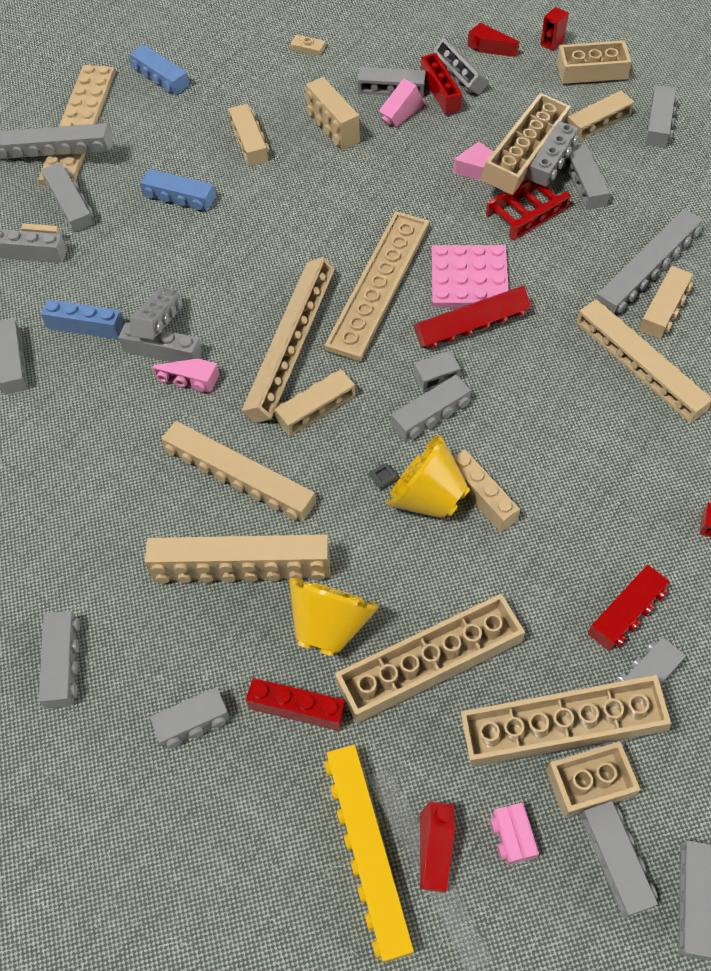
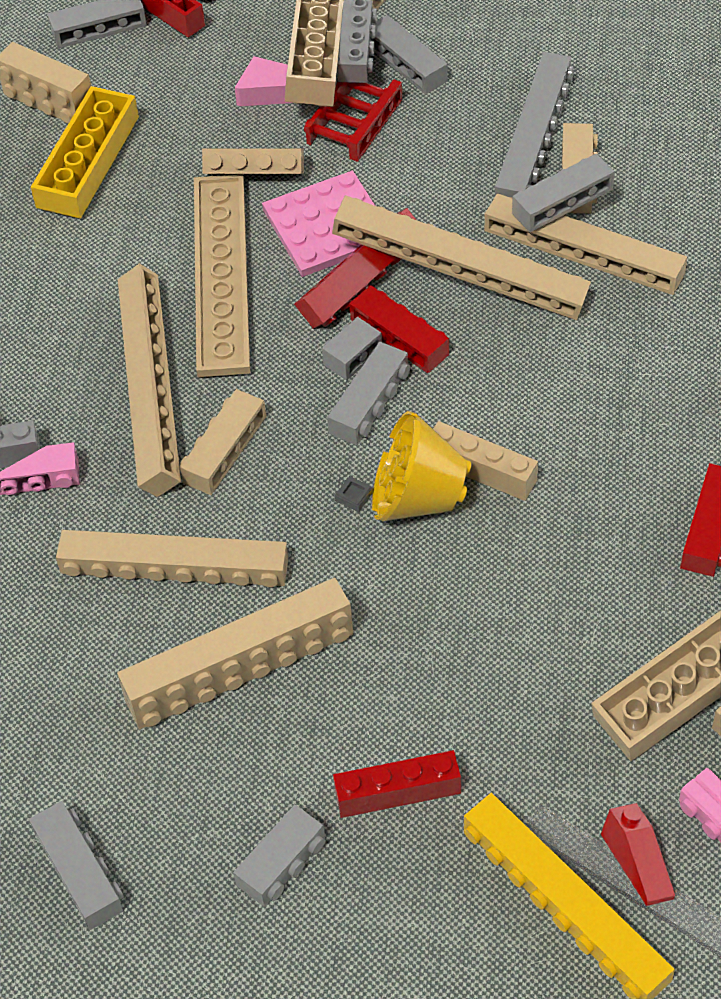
camera: 25 degrees left, 5 degrees down
(326, 615) = (382, 666): yellow cone -> none
(334, 168) = (85, 152): none -> yellow brick
(401, 103) = (127, 42): bright pink slope -> none
(429, 658) = (521, 667): tan brick -> none
(440, 214) = (253, 160): none -> tan brick
(477, 371) = (401, 328): none -> red brick
(545, 337) = (460, 257): none -> tan brick
(642, 316) = (562, 192): none -> light grey brick

